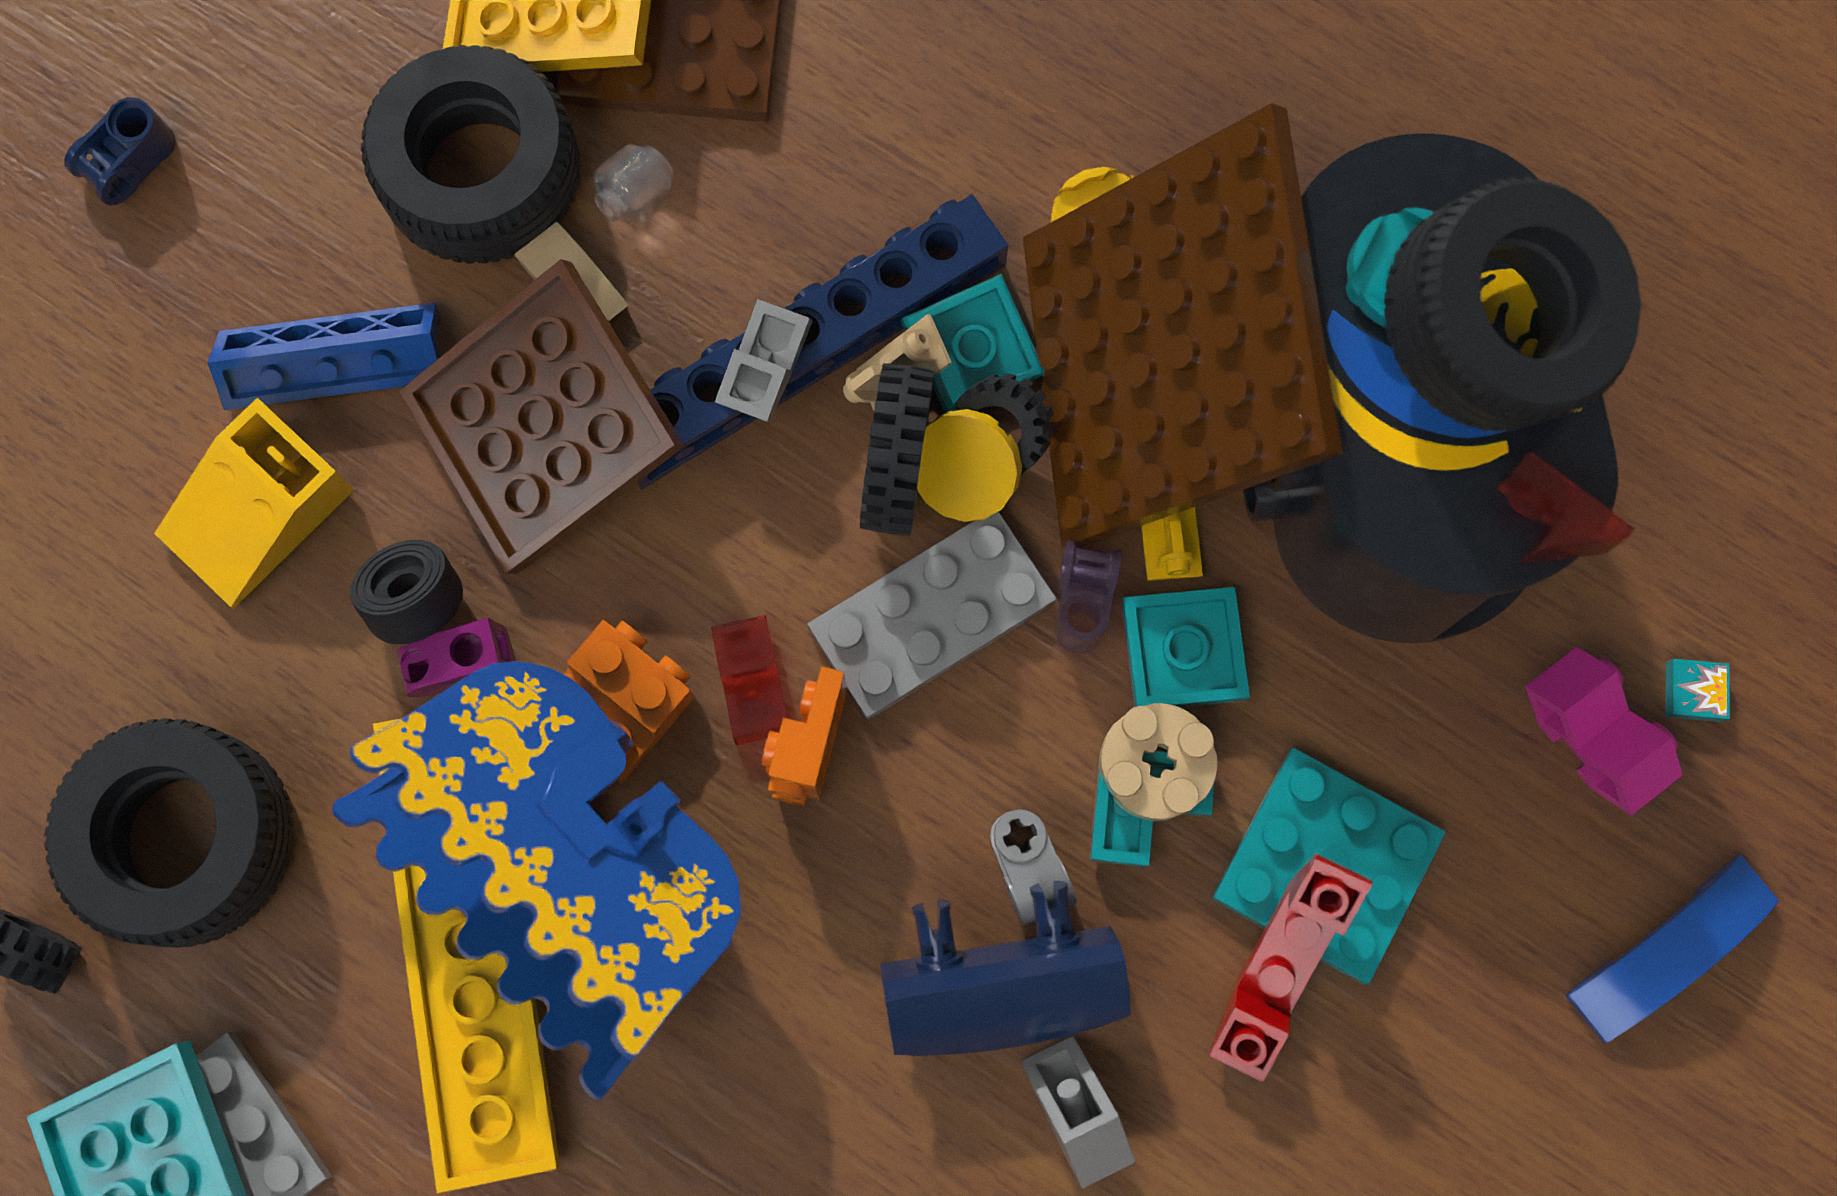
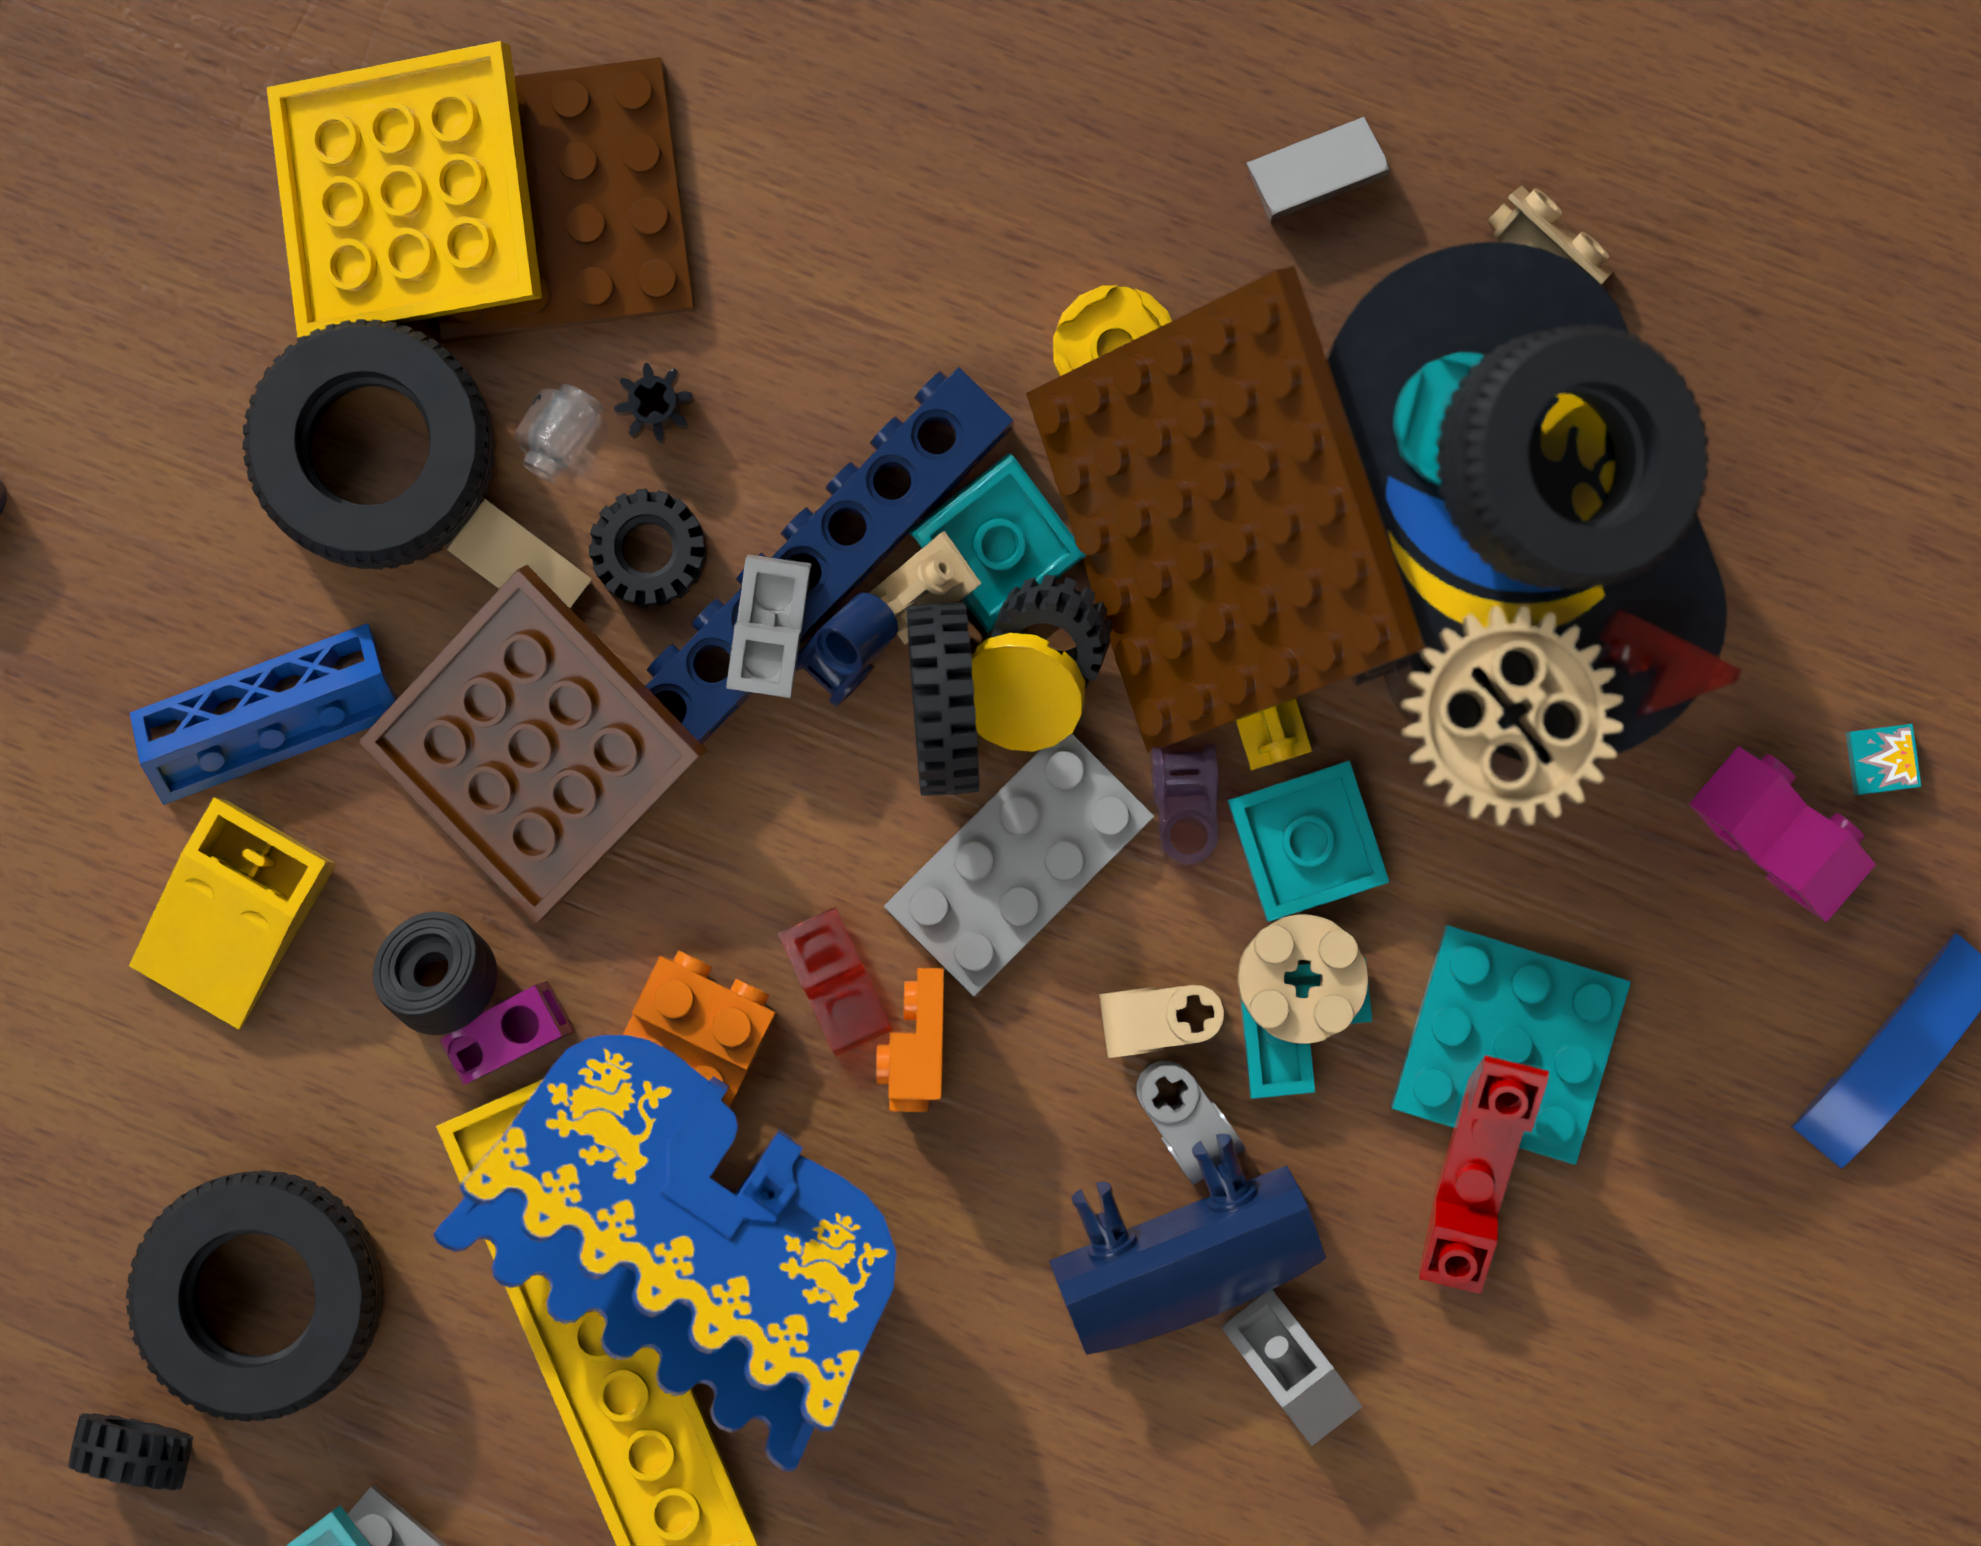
camera: 15 degrees left, 10 degrees up
(680, 260) = (642, 509): none -> black tyre
(715, 177) = (652, 386): none -> black gear
(826, 398) = (848, 646): none -> dark blue piece
(1012, 771) = (1147, 1019): none -> tan piece
(1313, 114) = (1318, 169): none -> light grey slope
(1459, 508) = (1558, 676): none -> tan gear

